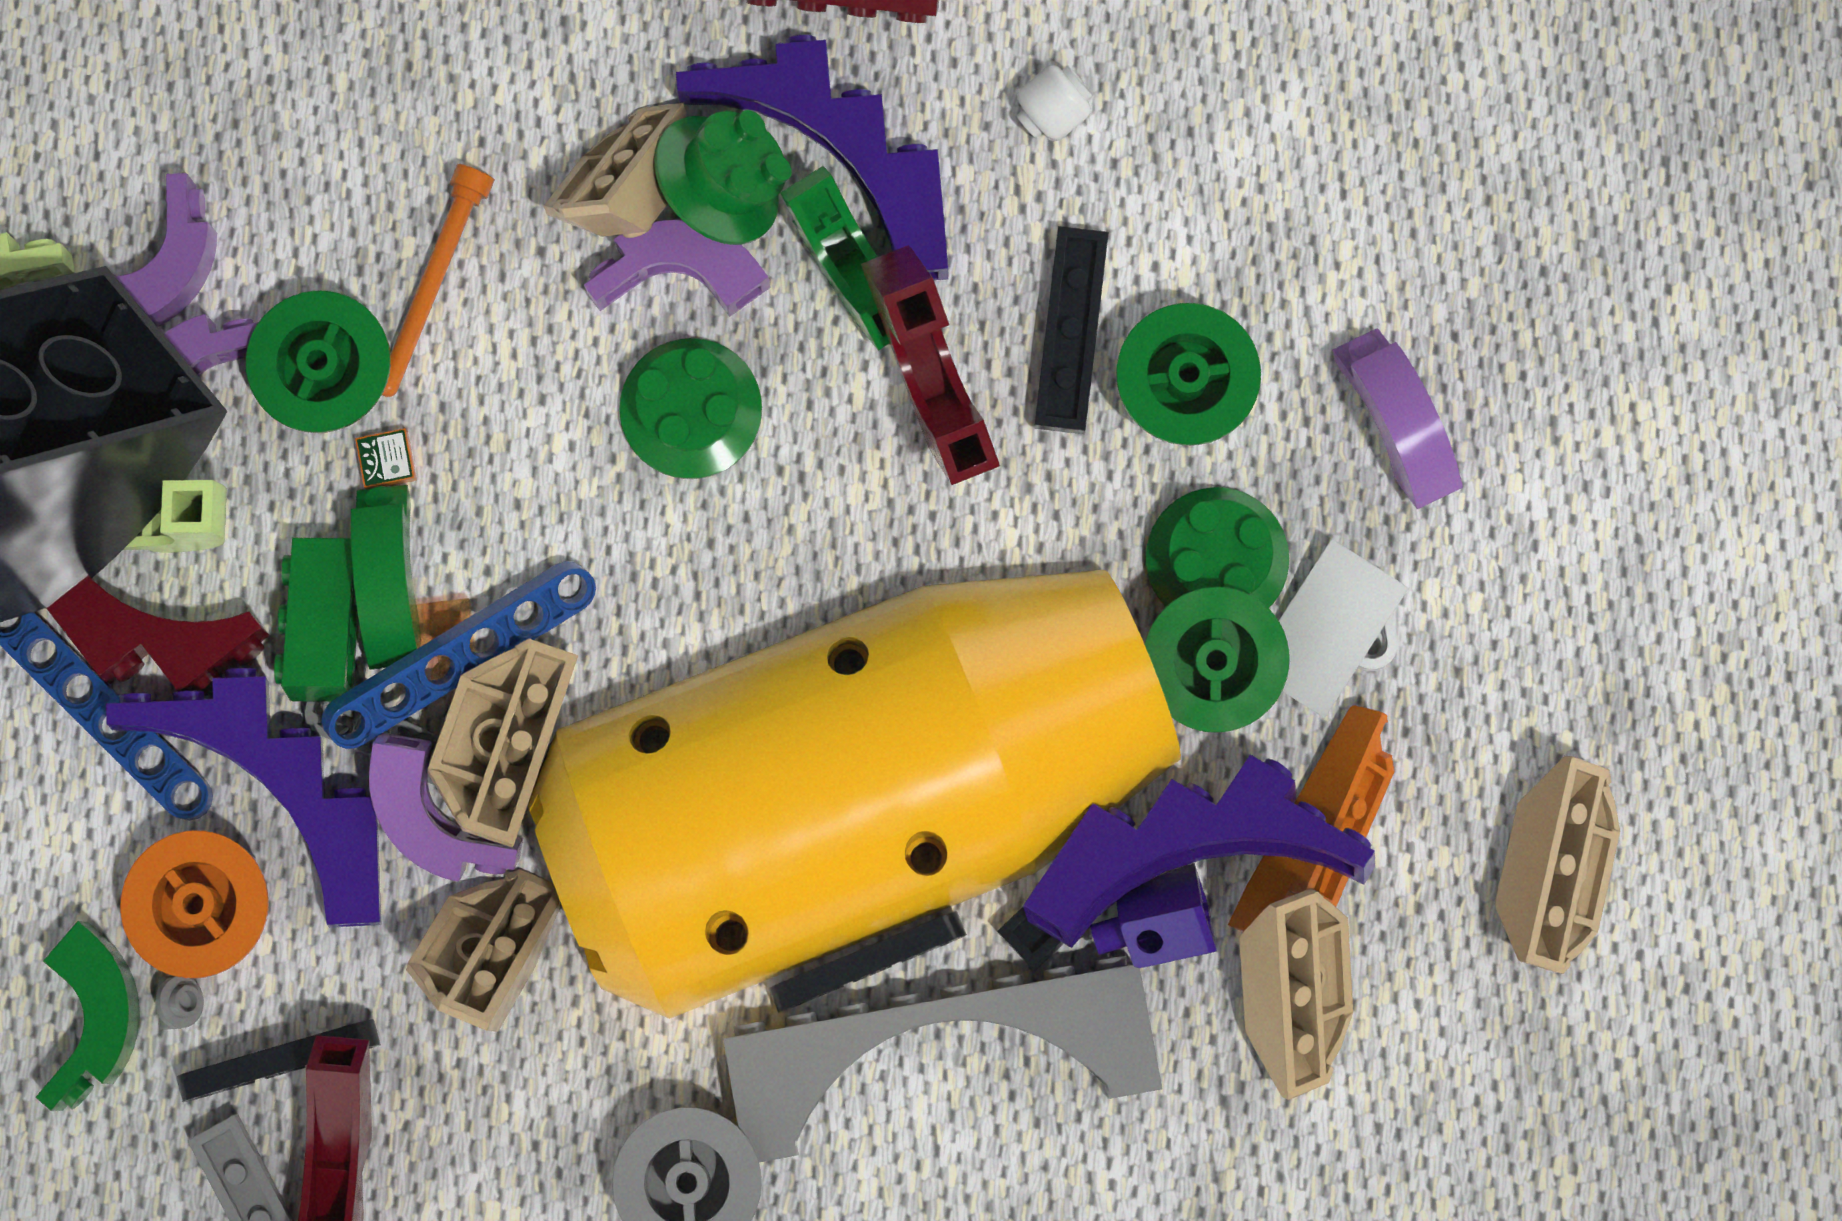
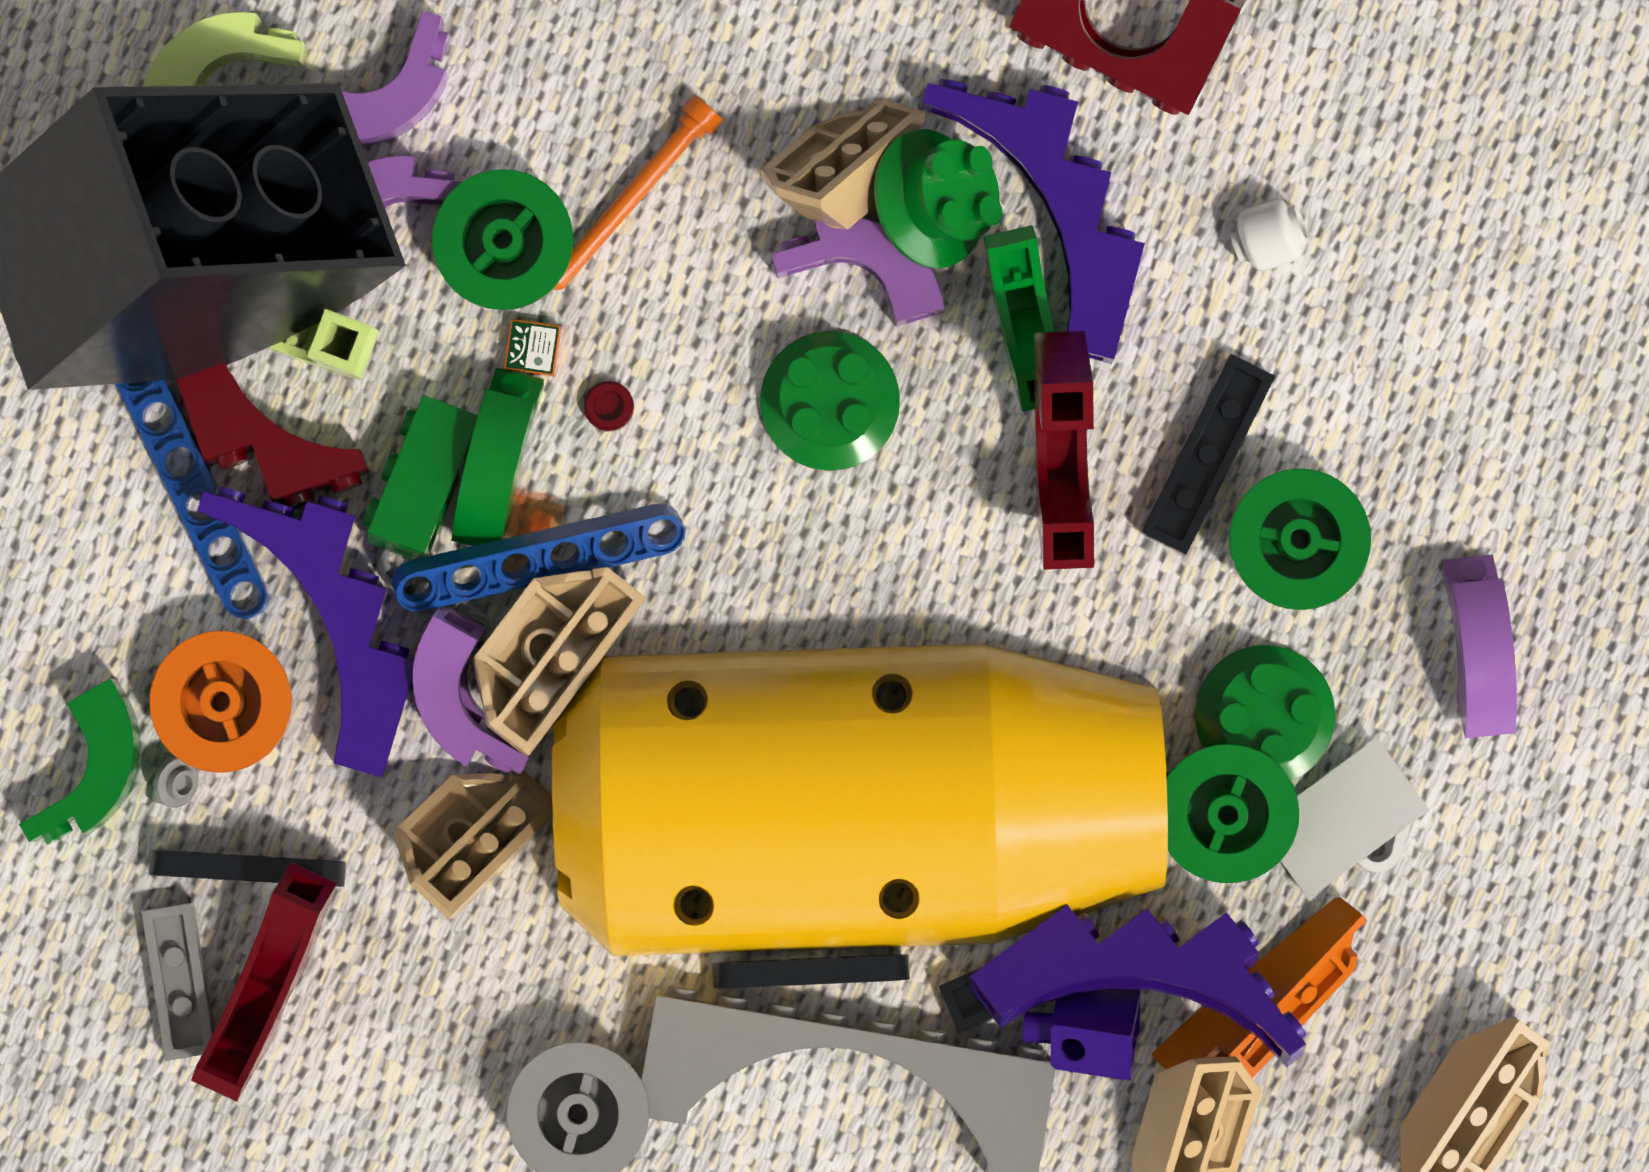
camera: 20 degrees right, 5 degrees up
(479, 489) = (609, 406): none -> dark red tile

